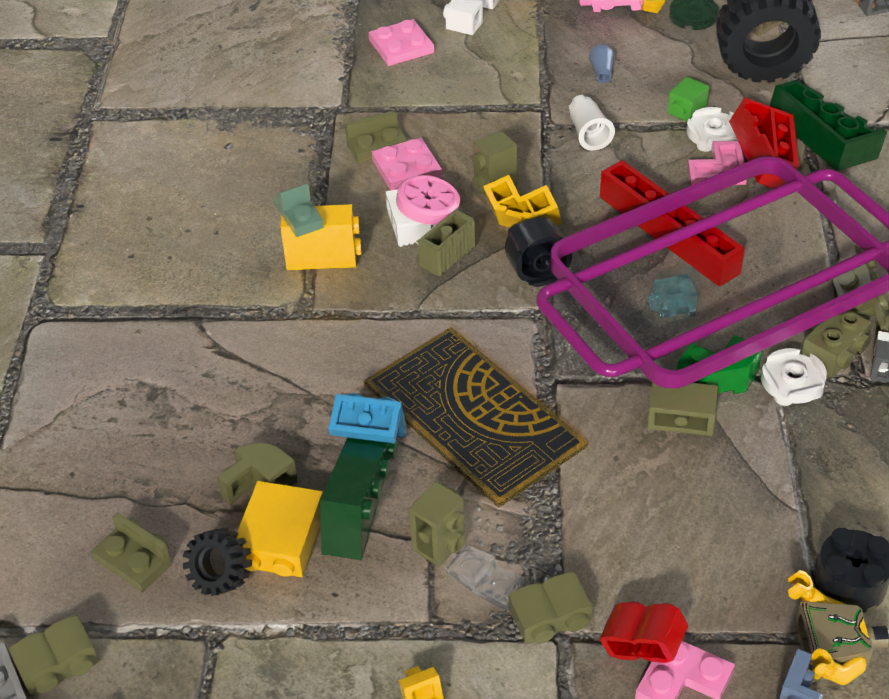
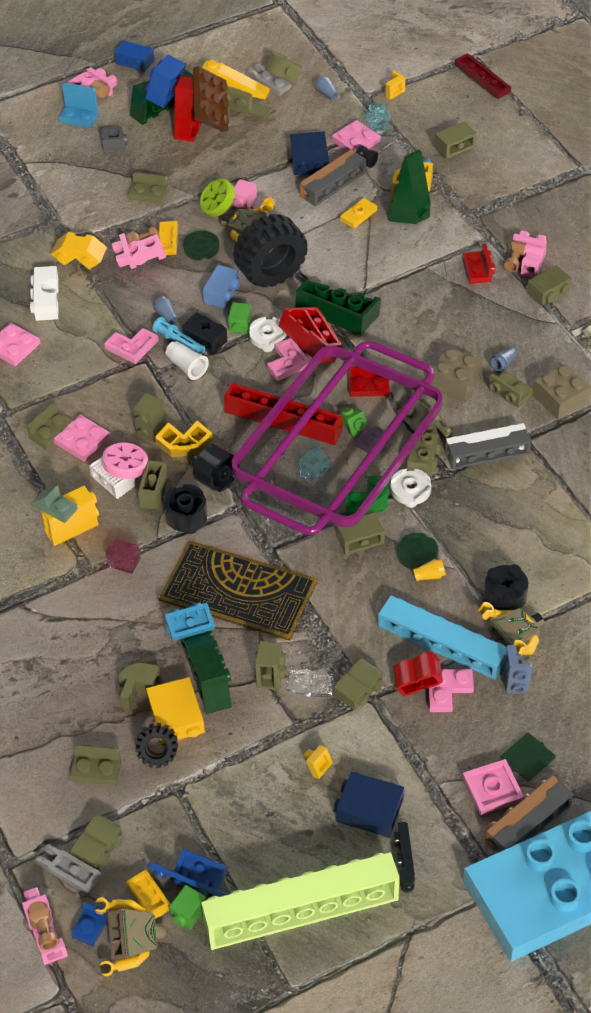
camera: 30 degrees left, 5 degrees up
(354, 311) = (123, 556): none -> clear pink brick
(468, 285) = (186, 508): none -> black brick
(533, 90) = (133, 348): none -> bright pink plate
(593, 88) = (172, 332): none -> medium azure pin
(632, 101) = (205, 332): none -> black brick
(687, 58) = (221, 286): none -> medium blue brick
(717, 598) = (442, 637): none -> medium azure brick
(753, 465) = (416, 550): none -> clear green tile
(754, 497) = (432, 570): none -> yellow cone
(763, 265) = (354, 420): none -> bright green bracket
(767, 287) = (369, 438): none -> clear purple bracket
(811, 228) = (367, 384): none -> red bracket

